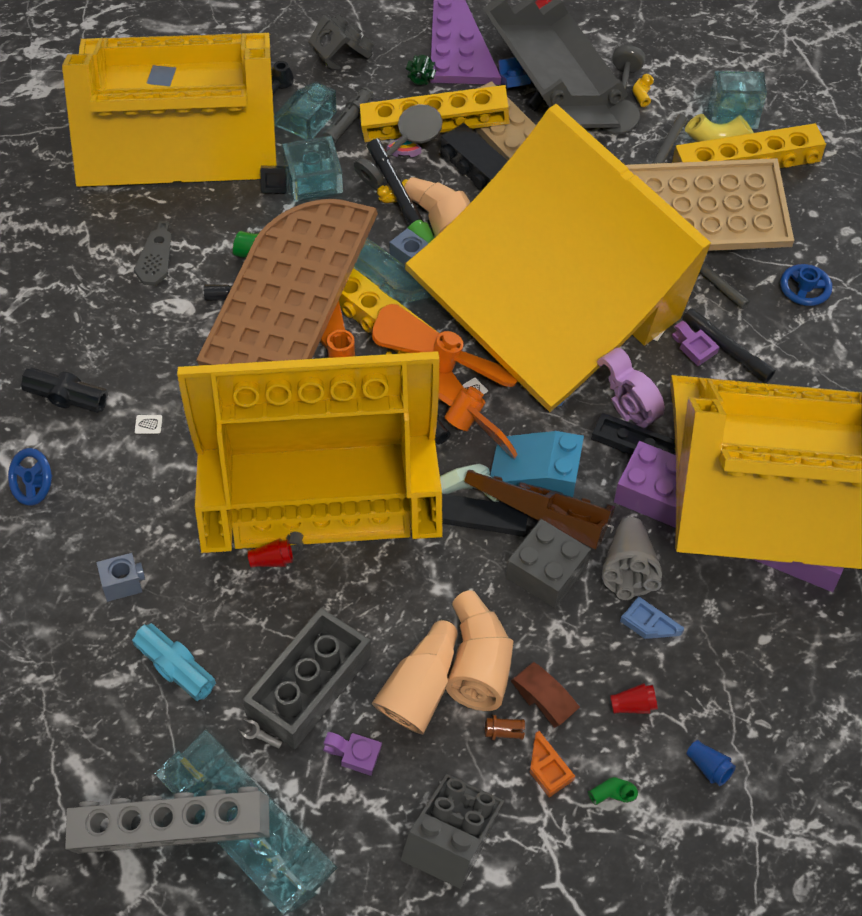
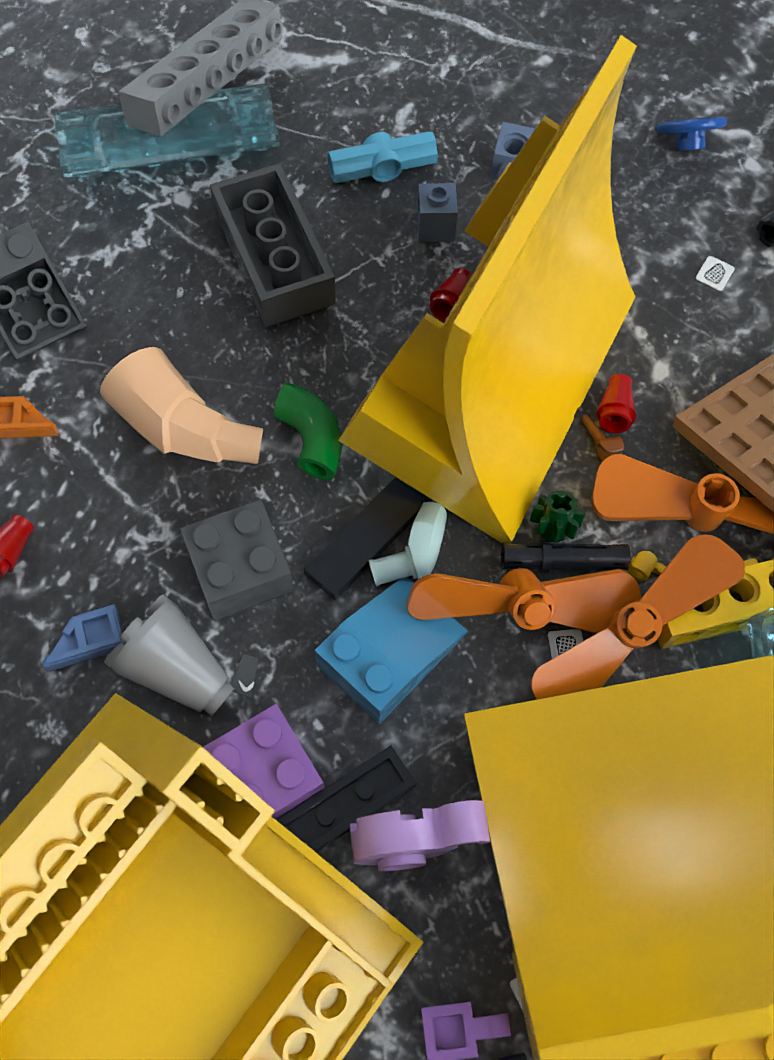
camera: 120 degrees right, 10 degrees up
(209, 595) = (437, 212): none -> sand blue brick
(357, 753) = (170, 261): medium lavender plate -> none
(419, 680) = (184, 327): light nougat piece -> none
(428, 575) = (317, 429): none -> green cylinder
(504, 728) = (82, 398): dark orange pin -> none
(546, 692) = (86, 455): copper slope -> none
(570, 515) = (285, 628): reddish brown wedge -> none

